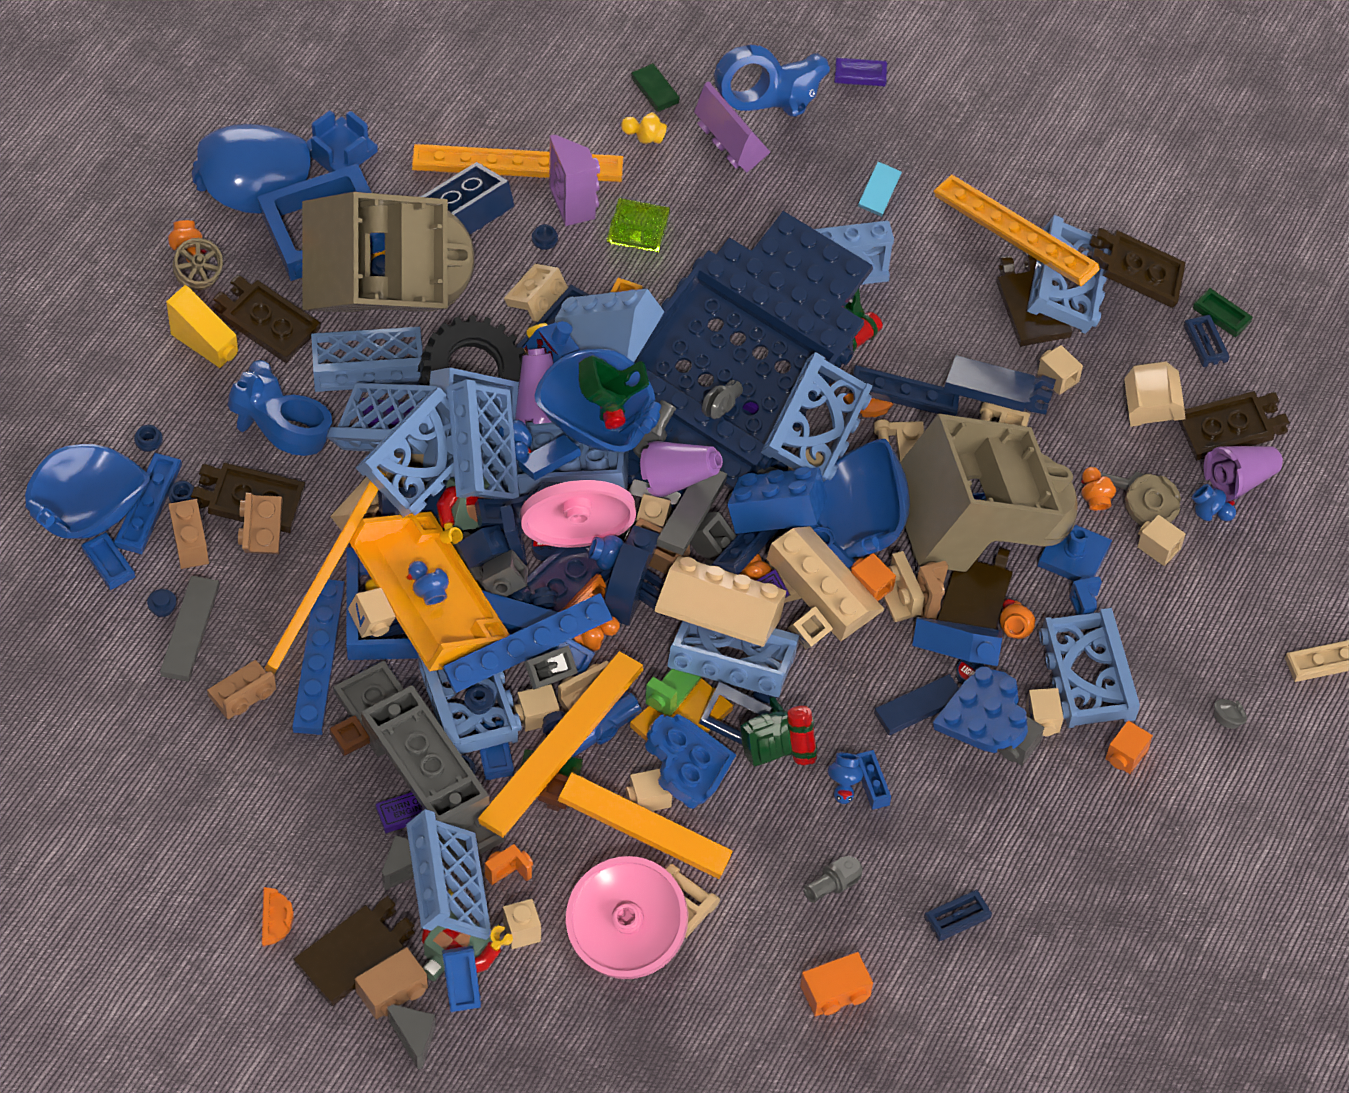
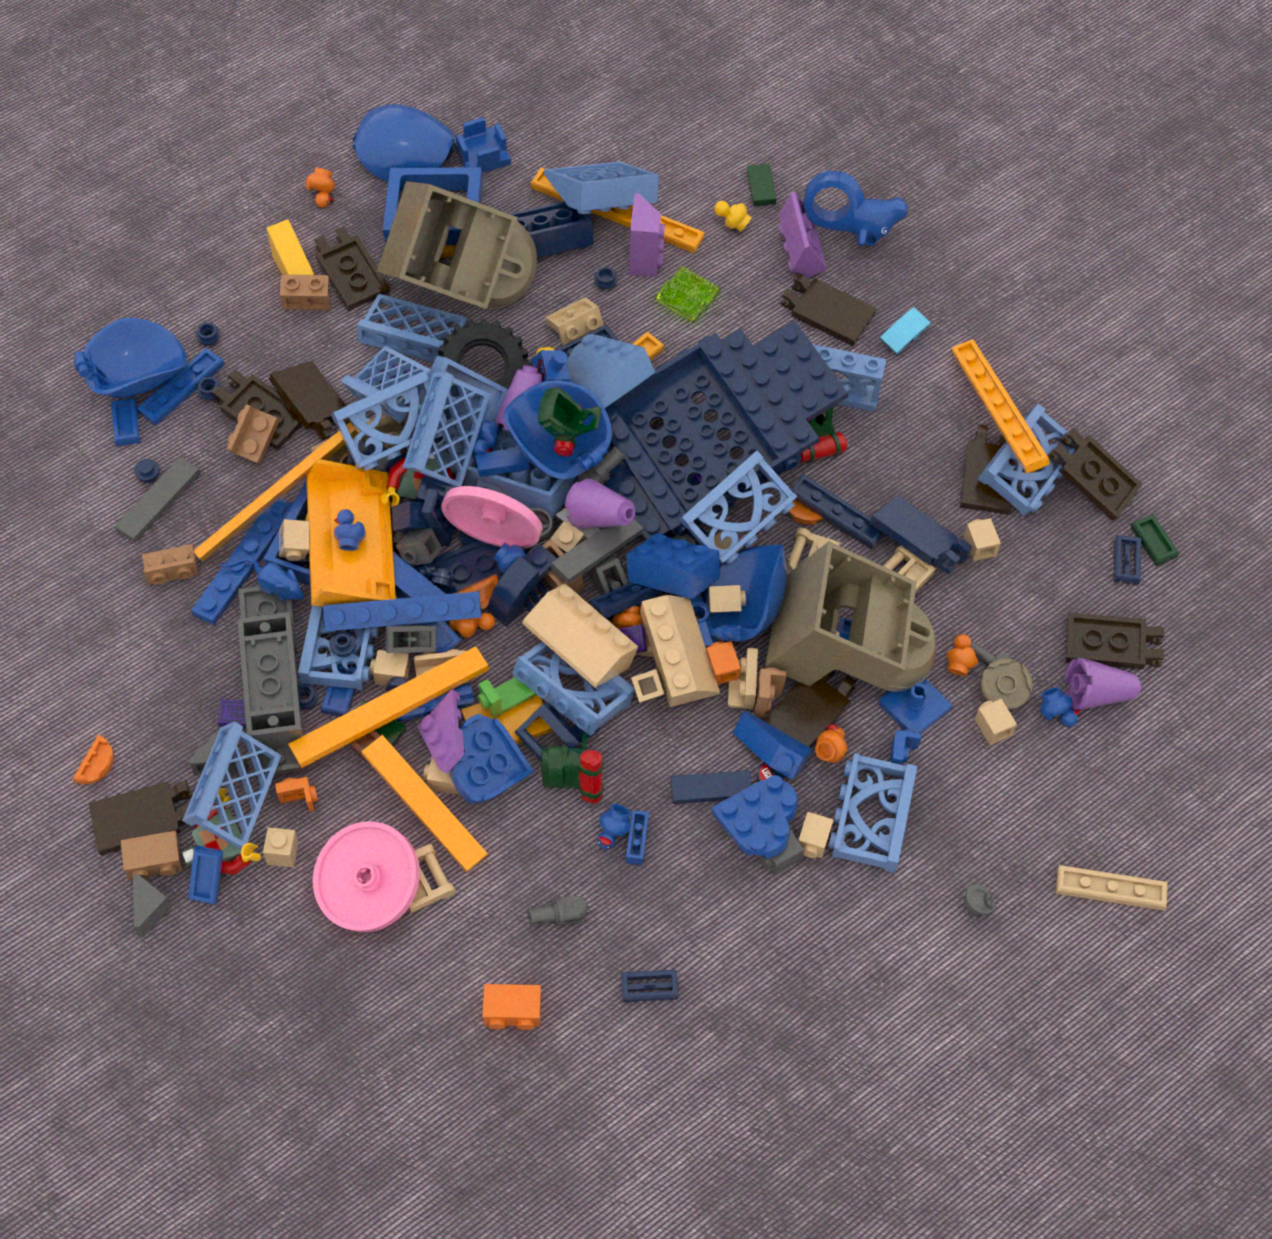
camera: 25 degrees right, 5 degrees up
(188, 533) = (194, 422): medium nougat brick -> none
(197, 263) = (317, 207): dark tan wheel -> none
(233, 356) = (305, 292): none -> medium nougat bracket
(261, 399) = (306, 338): blue animal -> none
(311, 474) = (308, 396): none -> dark brown tile
(349, 735) = (226, 634): reddish brown tile -> none
(370, 661) = (274, 579): none -> blue animal
(498, 140) = (603, 185): none -> medium blue slope
(633, 747) = (442, 732): none -> medium lavender wing
(721, 399) = (665, 463): dark grey arm -> none
(793, 191) = (828, 309): none -> dark brown tile
(844, 514) = (726, 599): none -> tan brick
(860, 72) = (941, 227): dark purple tile -> none
(1128, 747) = (872, 896): orange brick -> none
(1154, 394) = (1054, 590): tan slope -> none

